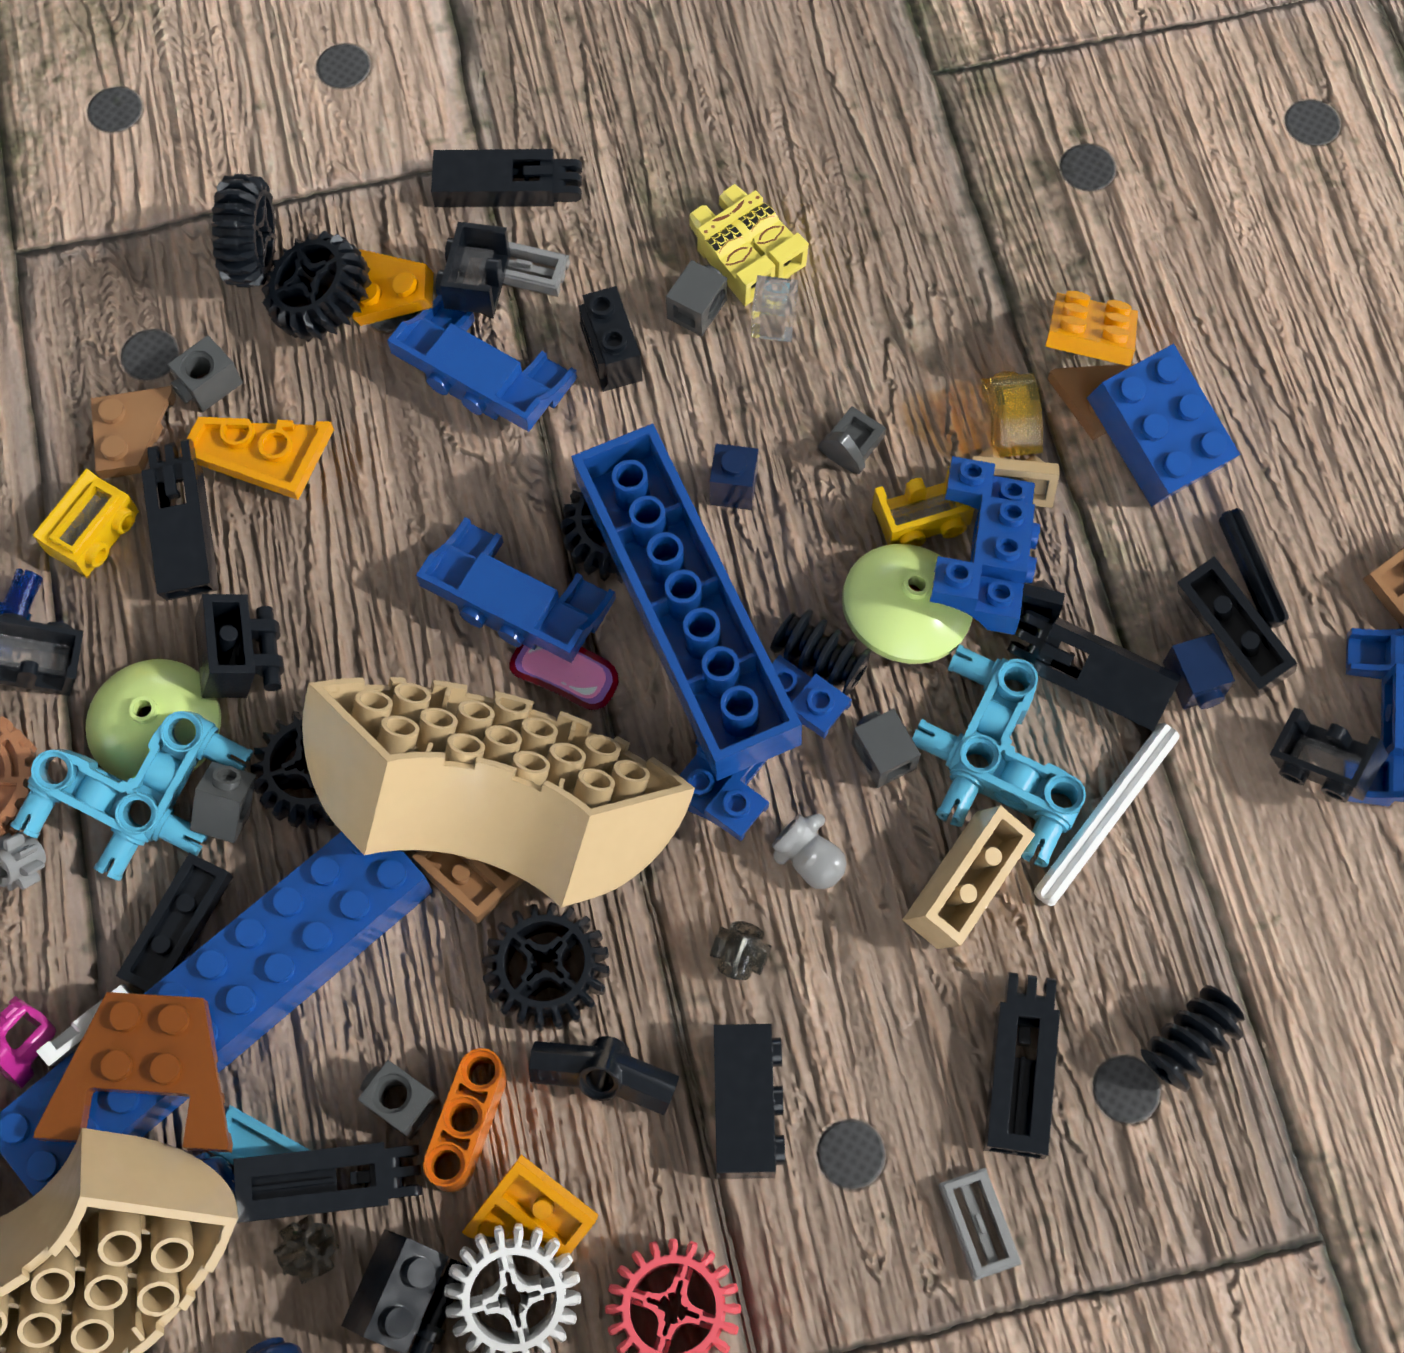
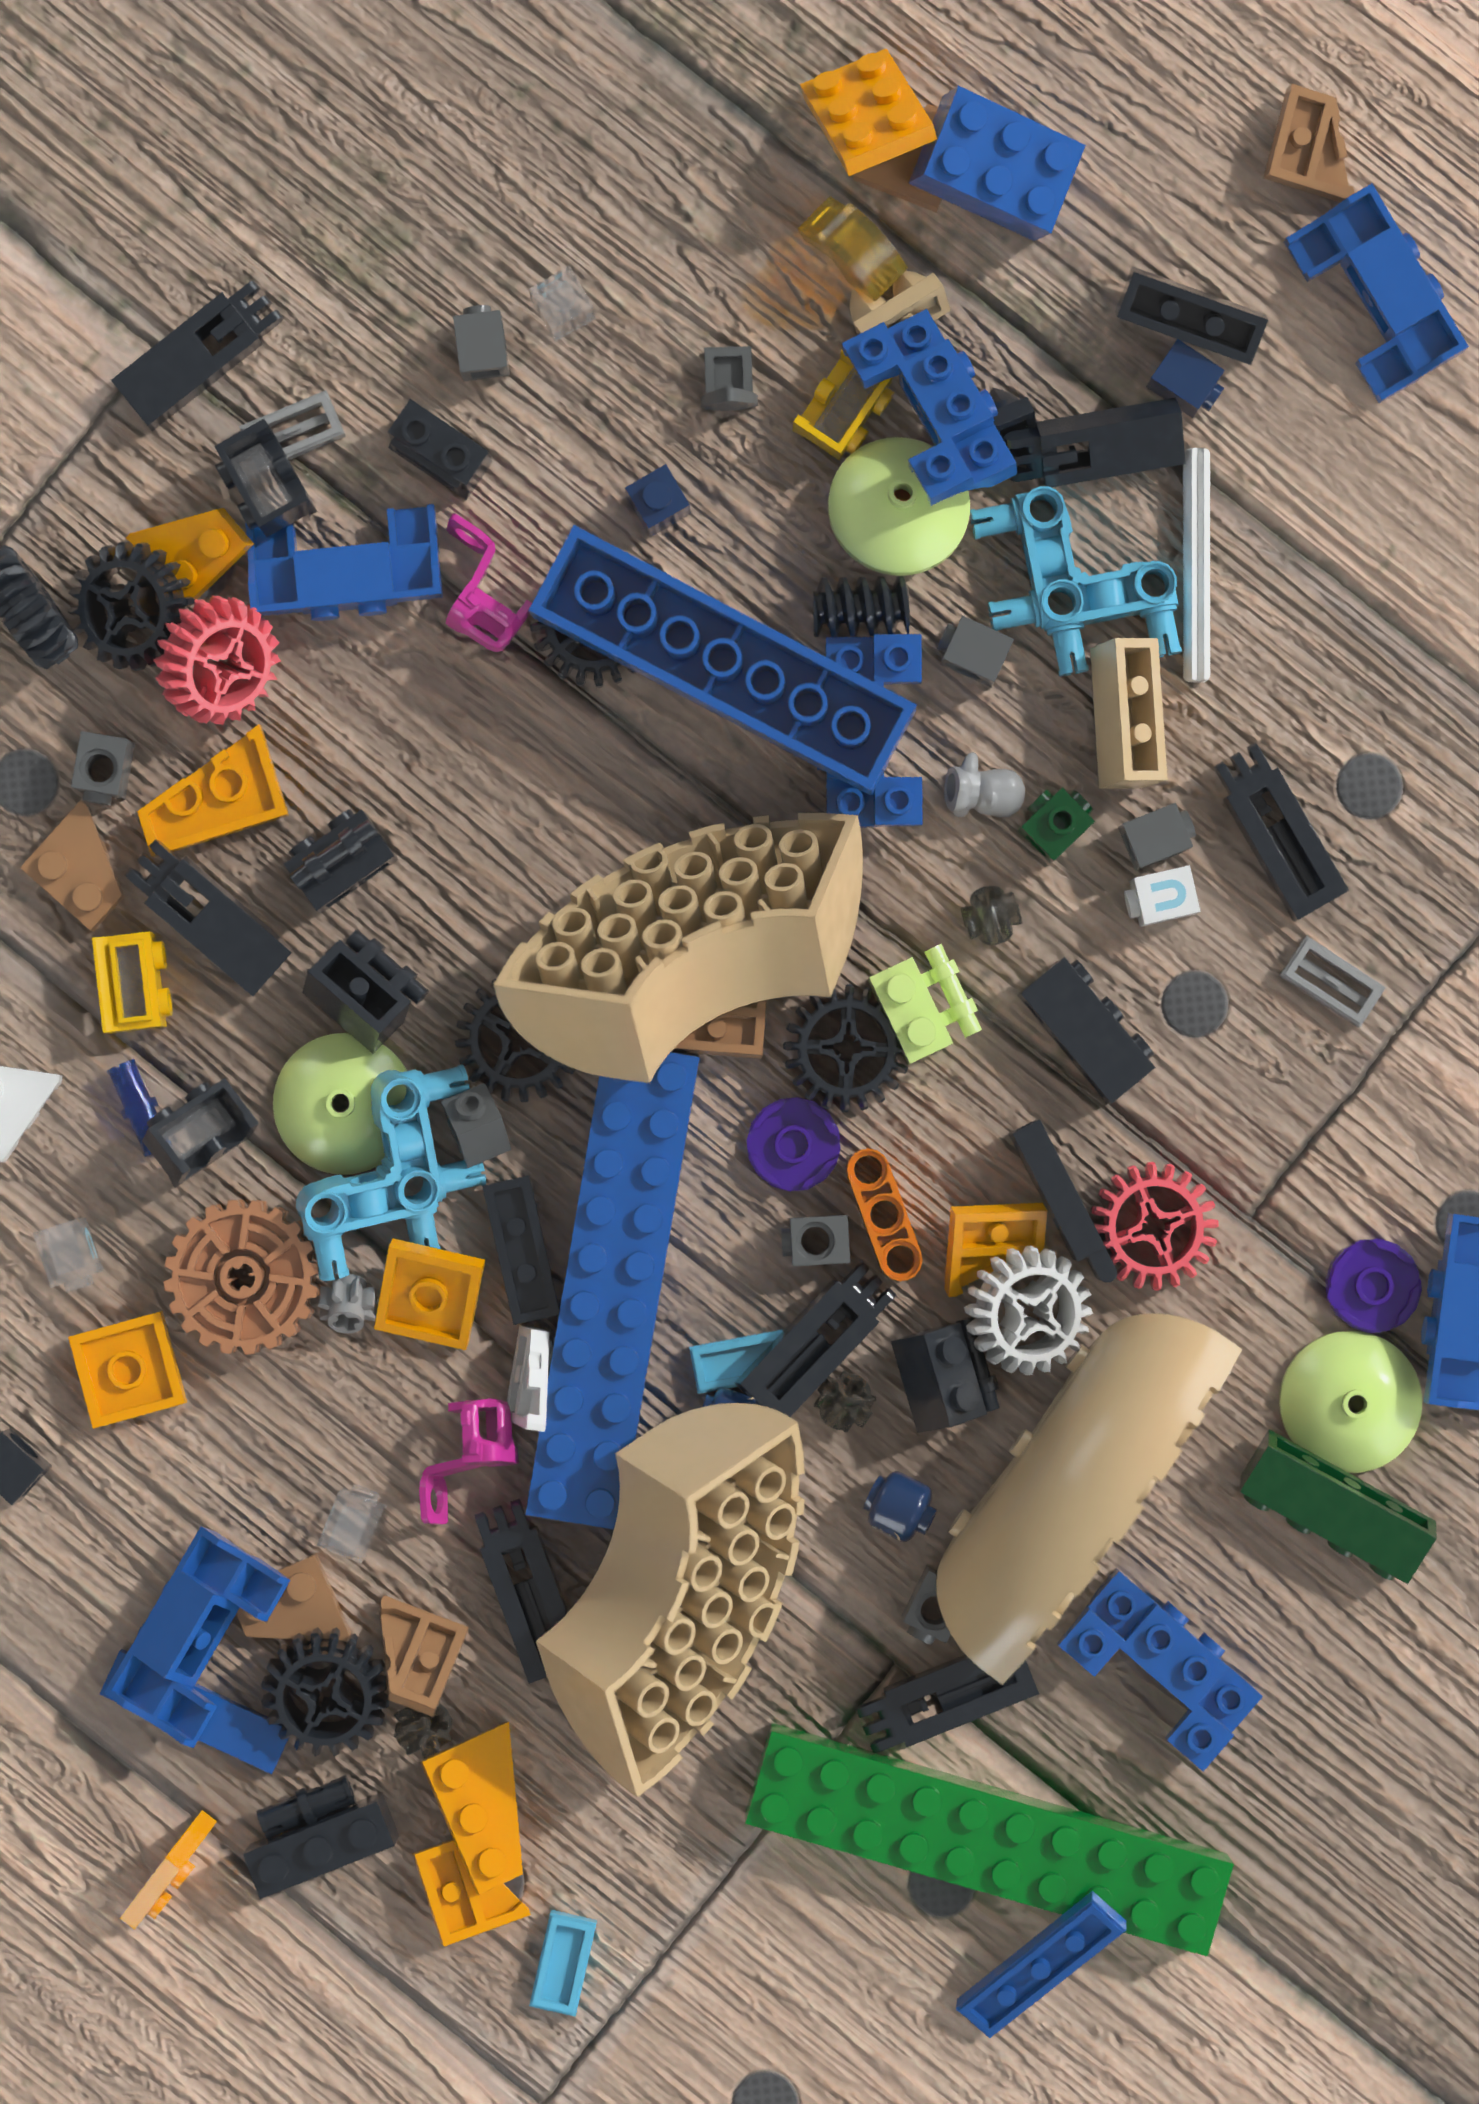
camera: 45 degrees left, 20 degrees up
(77, 901) = (429, 1294): none -> light orange plate
(144, 1049) = (606, 1358): dark orange wing -> none
(300, 550) = (339, 860): none -> black brick
(321, 366) = (217, 632): none -> coral gear
(445, 1011) = (793, 1144): none -> dark purple tile
(510, 600) = (557, 767): blue bracket -> none
(540, 448) = (475, 606): none -> dark pink piece
(586, 681) = (650, 788): sticker -> none
(602, 1072) = (961, 1095): black piece -> none
(615, 1222) = (1062, 1199): none -> black hinge
(619, 973) = (912, 1010): none -> yellowish green brick
(747, 241) = (482, 252): light yellow hips -> none
(848, 920) = (1056, 822): none -> dark green brick
(888, 1041) = (1162, 896): none -> white brick
(921, 991) = (1157, 836): none -> dark grey brick
(1193, 1036) = (1397, 708): black piece -> none
(1253, 568) = (1163, 238): black axle -> none
(1327, 757) = (1344, 379): black window -> none

